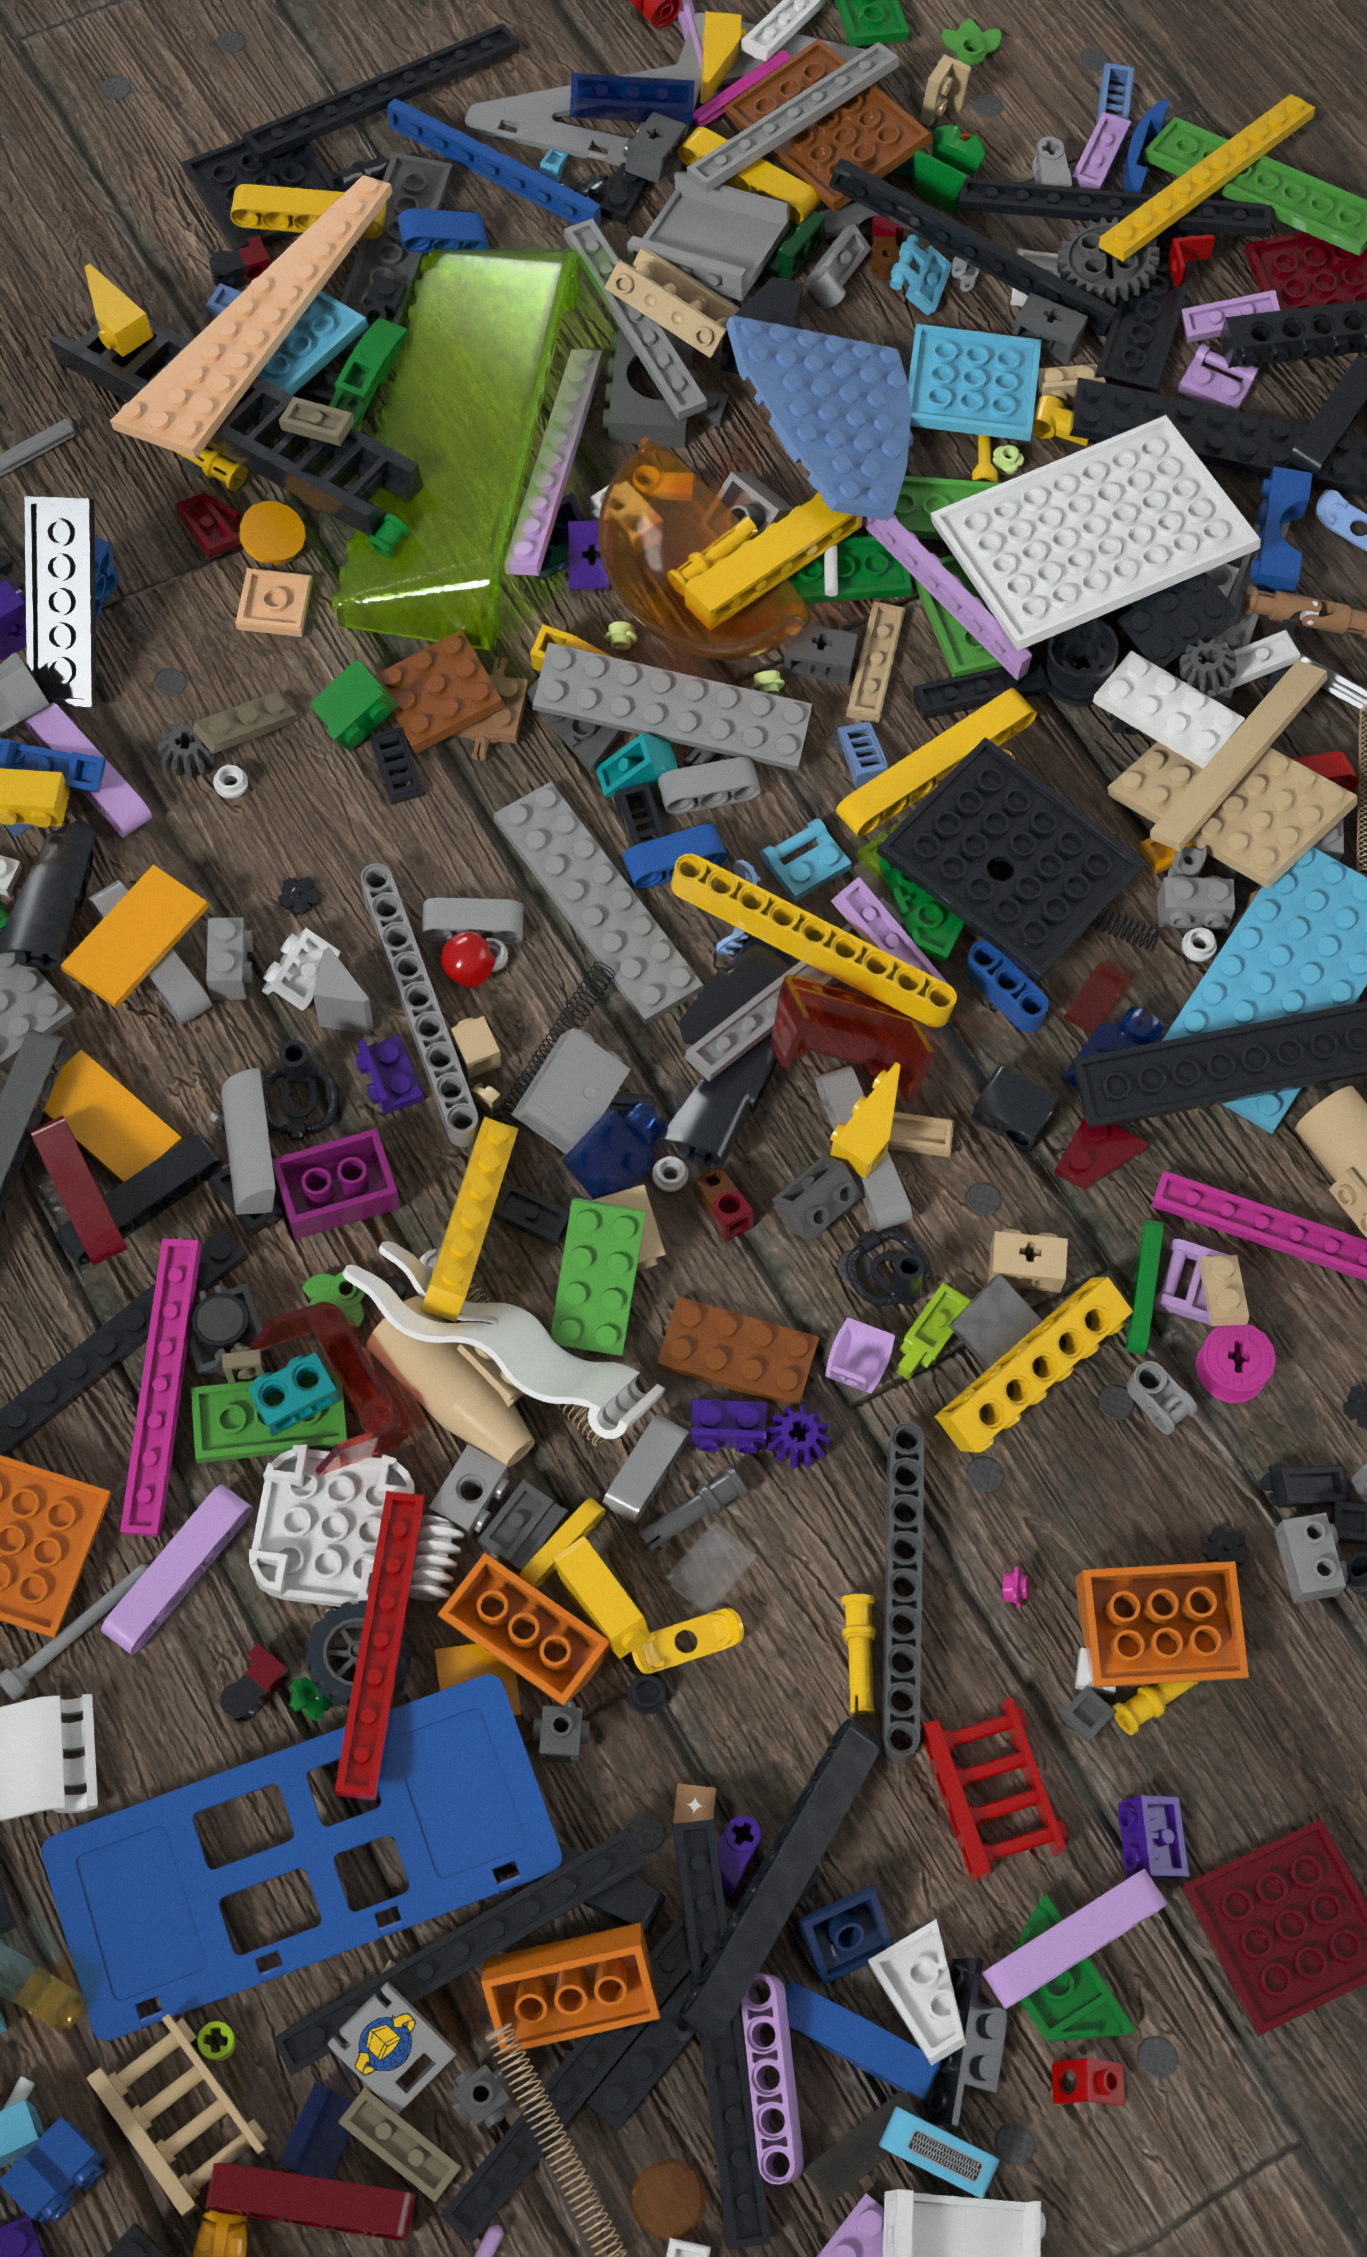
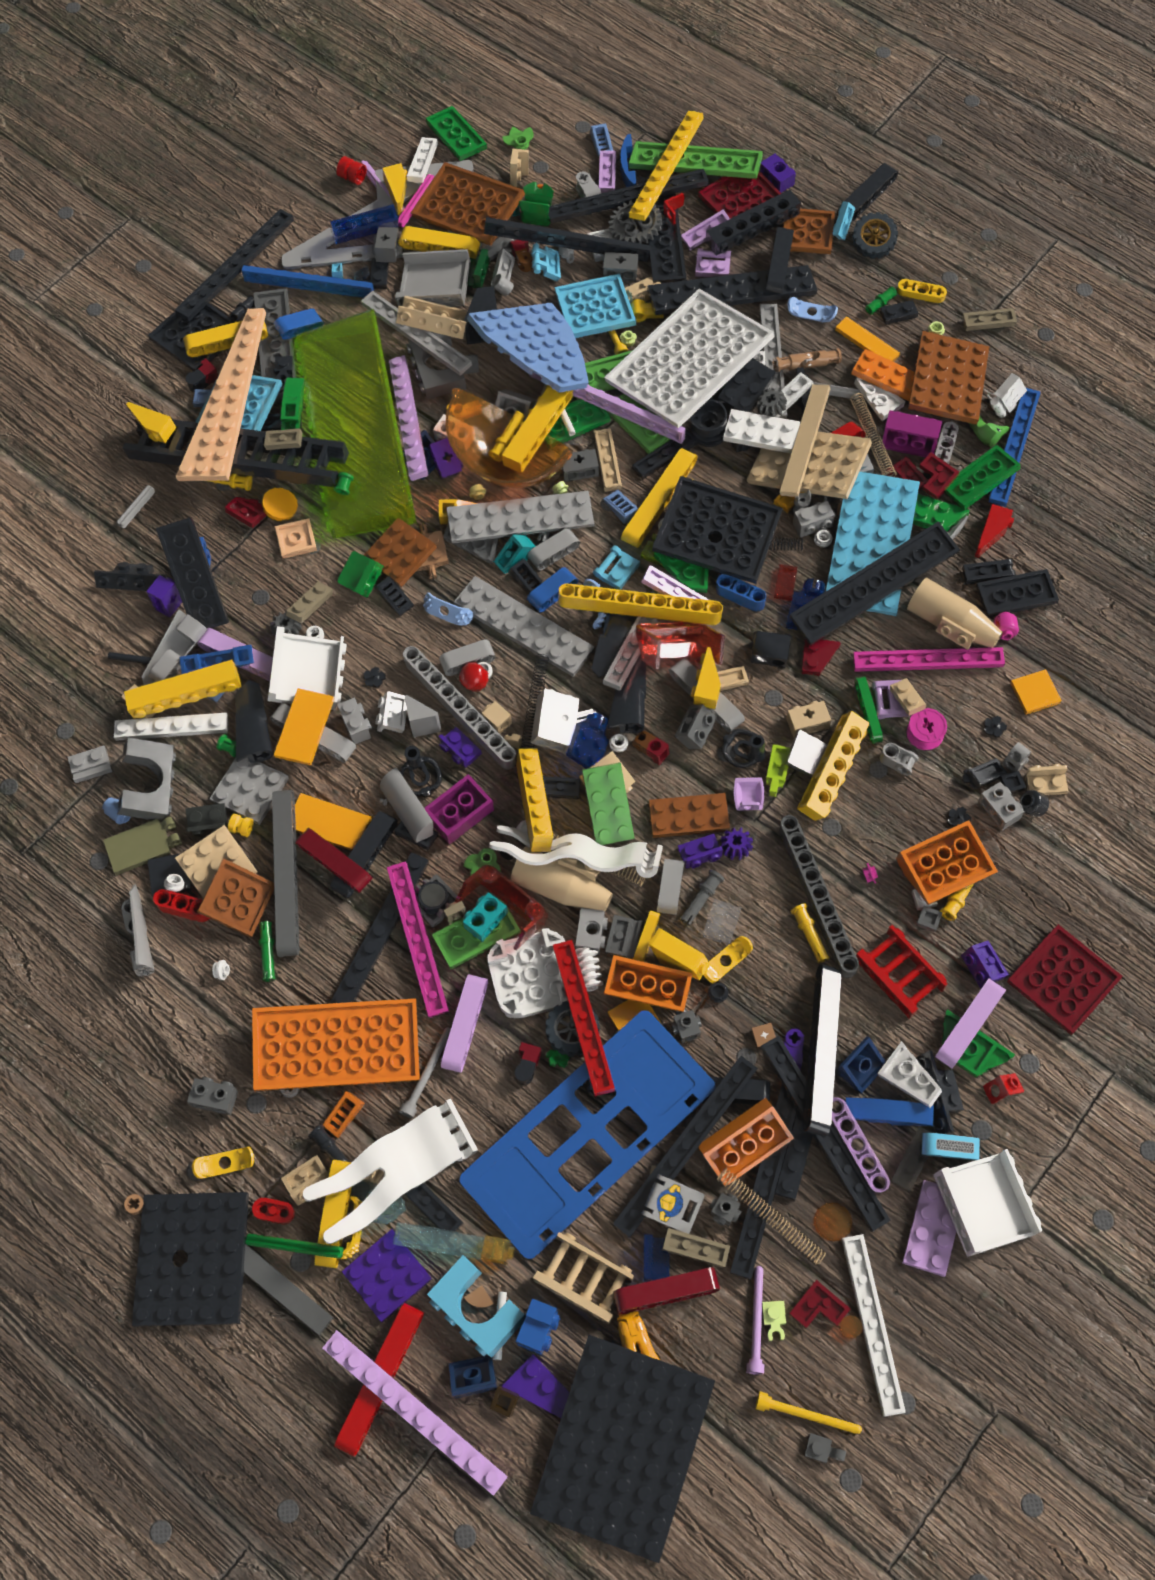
camera: 15 degrees left, 0 degrees up
(187, 830) = (305, 665): none -> white panel
(207, 2050) = (589, 1231): lime bush -> none
(486, 838) = (456, 614): none -> light blue piece
(792, 117) = (450, 205): light grey plate -> none
(1285, 500) = (772, 309): blue arch -> none

